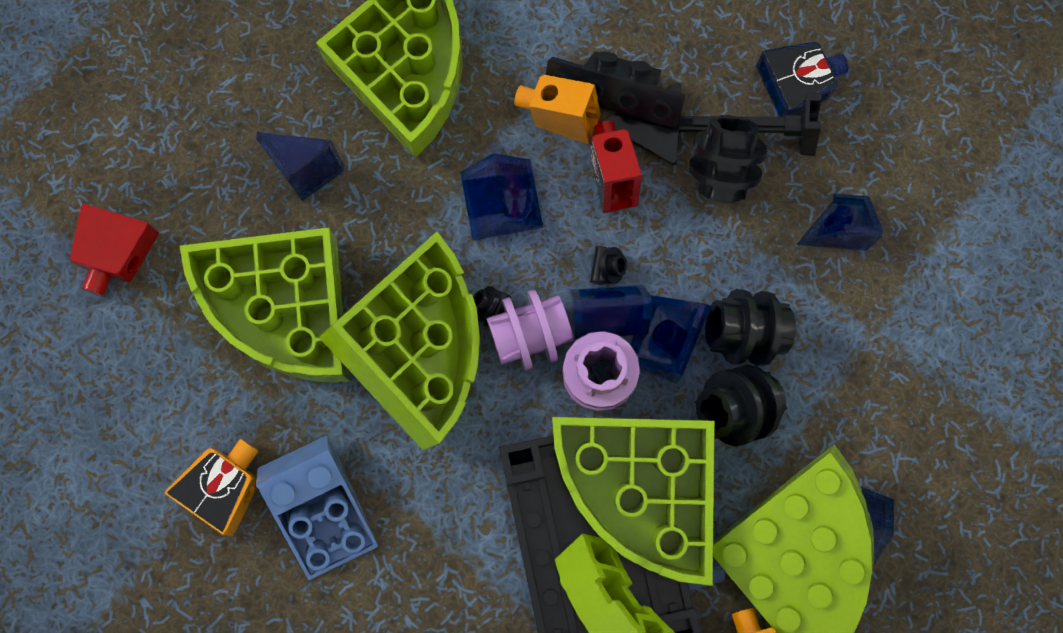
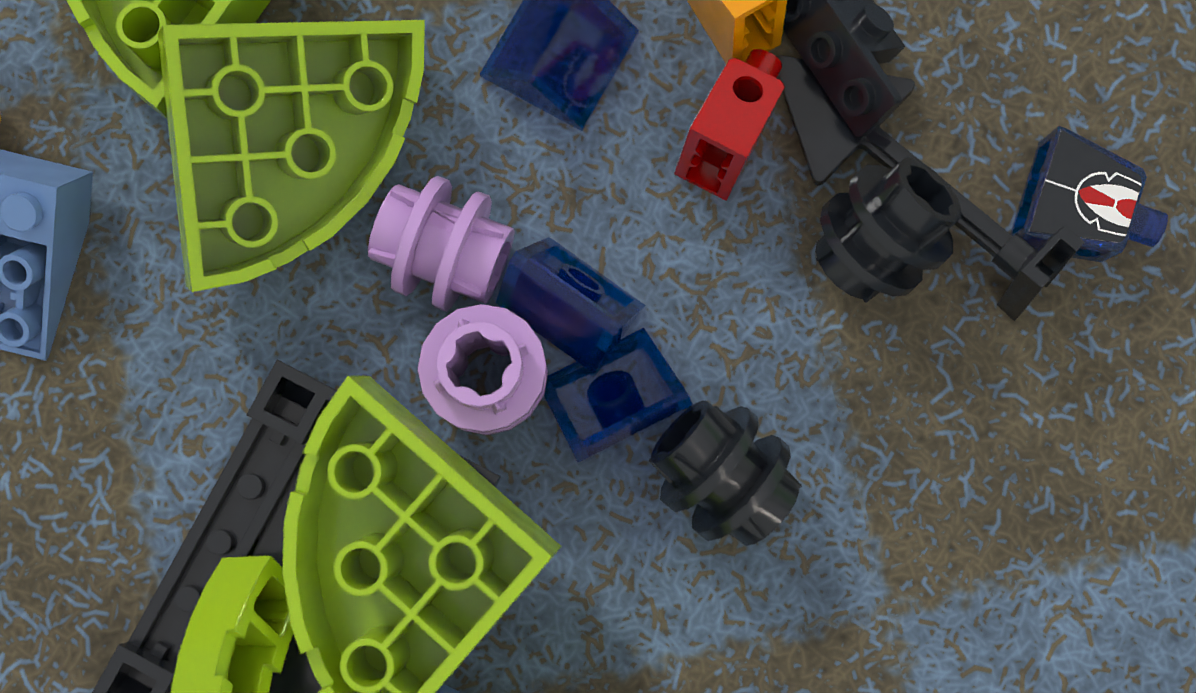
camera: 35 degrees right, 5 degrees up
(489, 303) = (424, 163): black plate -> none
(608, 265) = (619, 245): black plate -> none
(742, 403) = (626, 563): black piece -> none
(845, 224) = (974, 442): clear blue slope -> none

